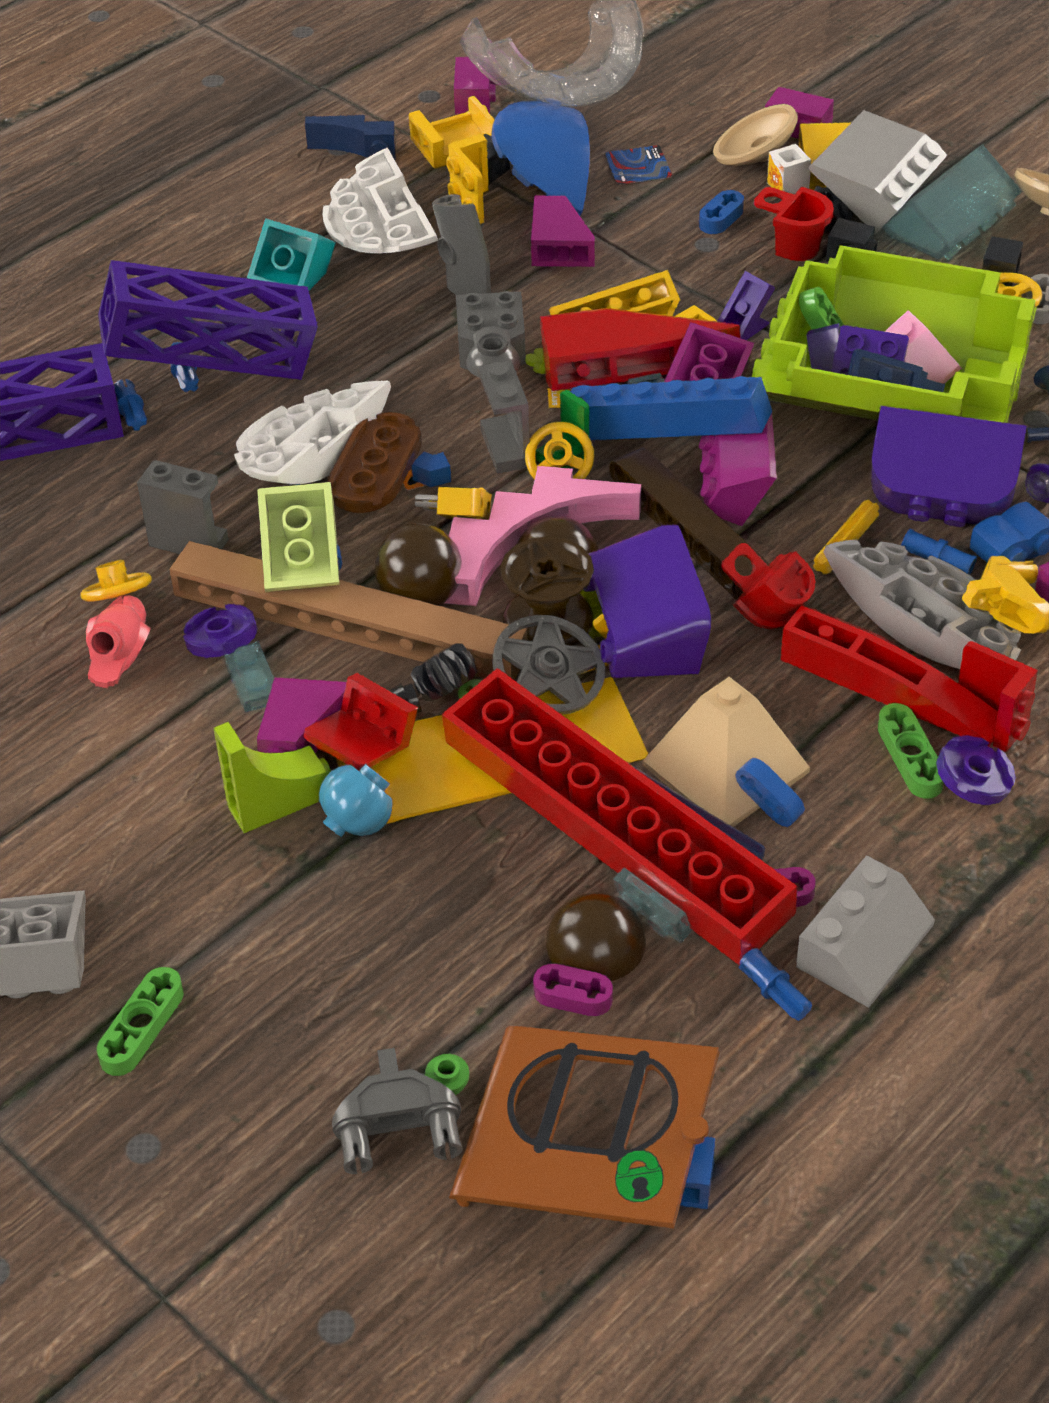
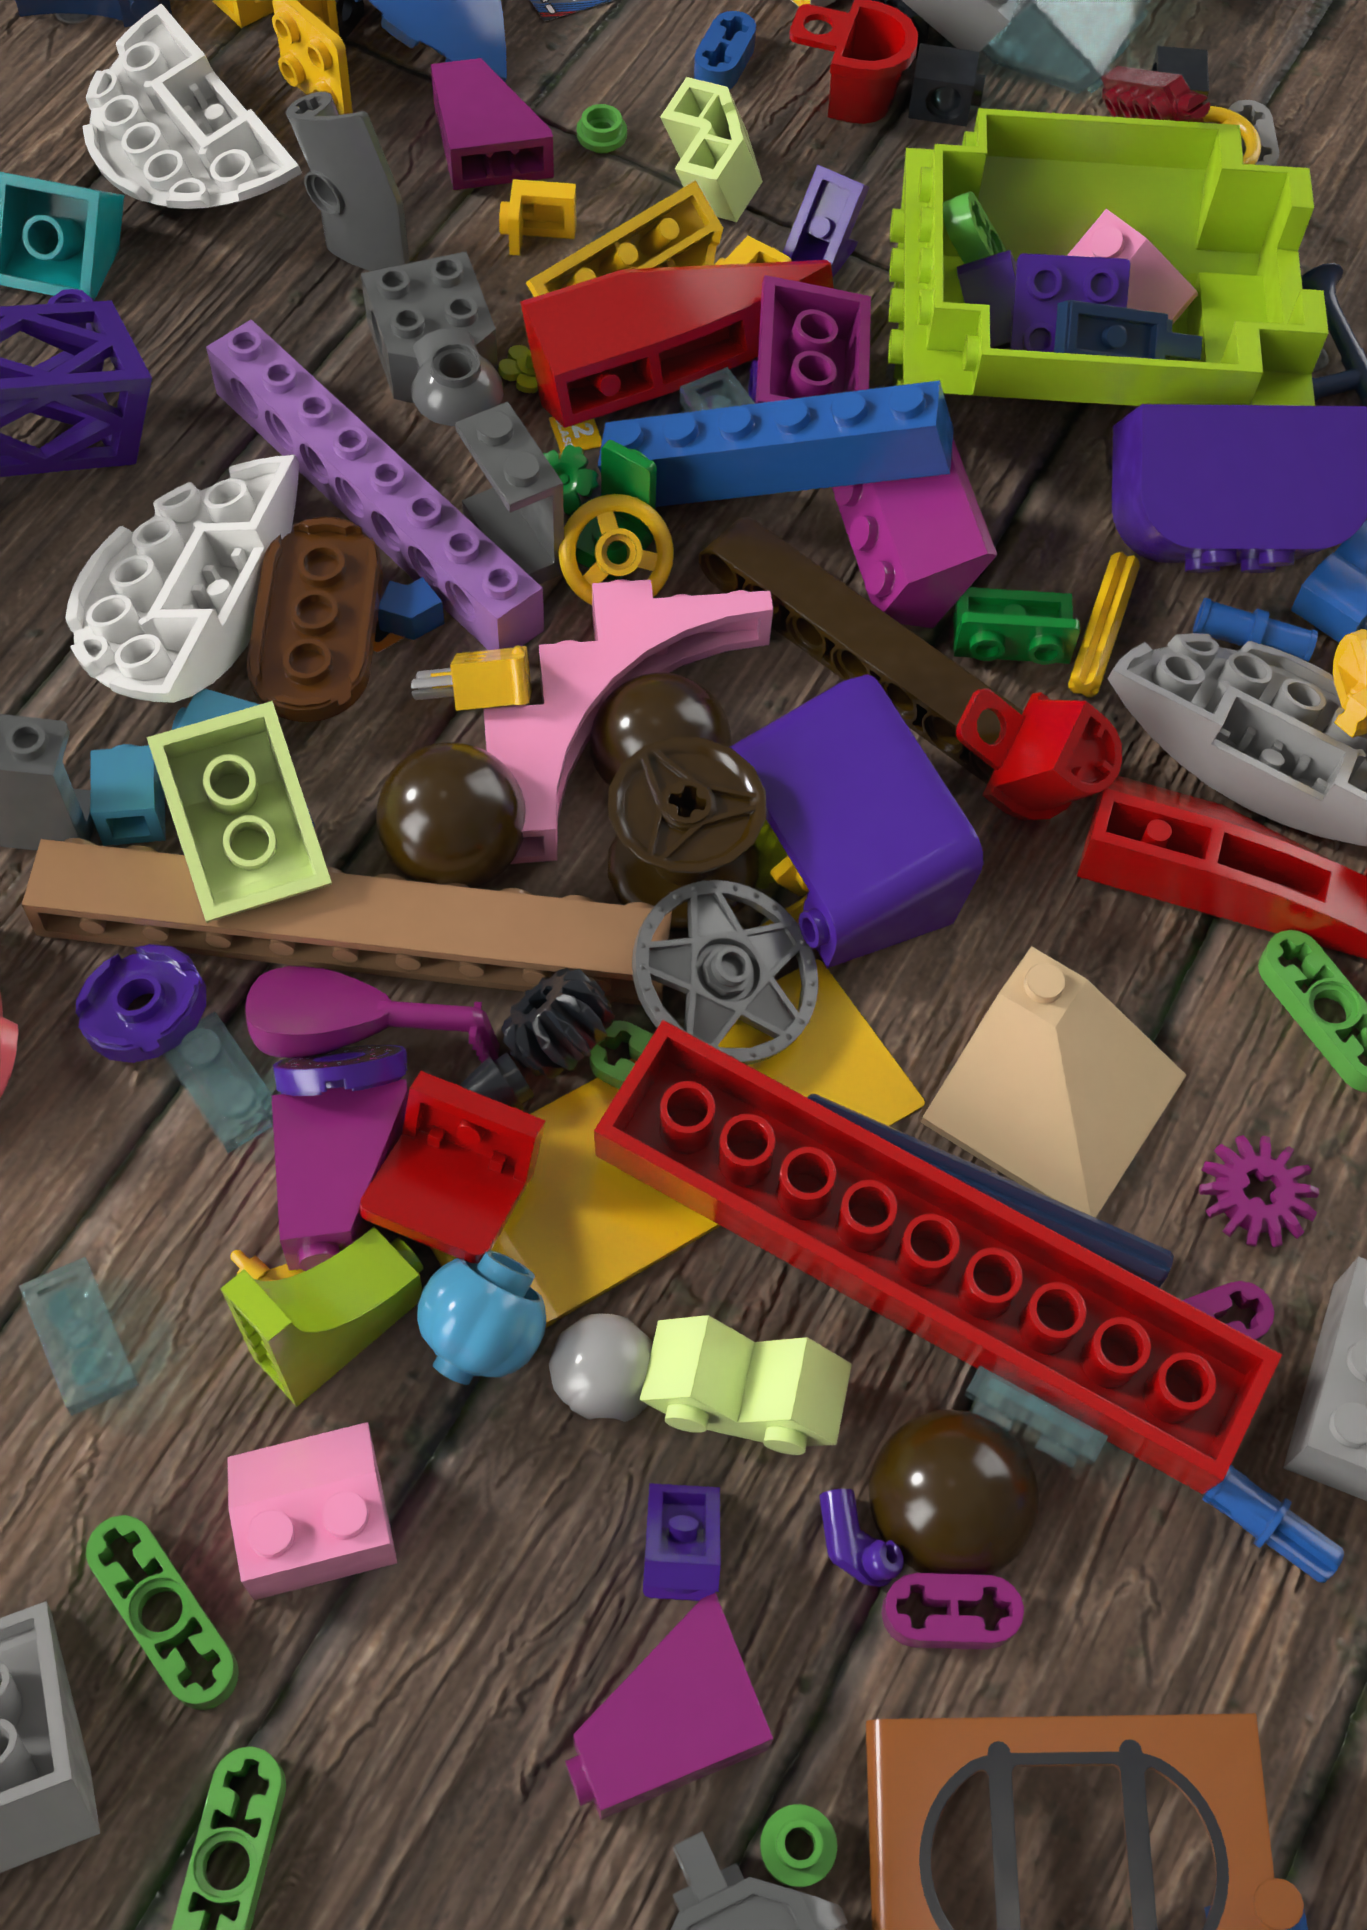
camera: 20 degrees left, 15 degrees up
(138, 774) = (78, 1336): none -> clear light blue plate
(141, 919) = (116, 1579): none -> bright green beam
(233, 878) = (308, 1512): none -> bright pink slope
(242, 531) = (126, 795): none -> dark azure brick
(314, 670) = (346, 1067): none -> dark purple tile
(316, 647) = (321, 1010): none -> magenta piece
(394, 1001) = (671, 1718): none -> magenta slope
(418, 842) = (601, 1367): none -> light grey hair
(429, 930) = (682, 1542): none -> dark purple slope
(431, 404) = (377, 489): none -> medium lavender brick
(485, 862) = (758, 1391): none -> yellowish green brick
(525, 949) = (851, 1548): none -> dark purple arm
(543, 414) = (575, 478): none -> green plant
(574, 280) = (539, 211): none -> yellow bracket
(630, 243) = (601, 129): none -> bright green plate
(691, 259) = (712, 146): none -> yellowish green brick
(770, 792) = (1152, 1148): blue beam -> none
(787, 527) = (1015, 626): none -> green bracket
(823, 840) = (1253, 1213): none -> magenta gear
(965, 256) = (1152, 96): none -> dark red plate

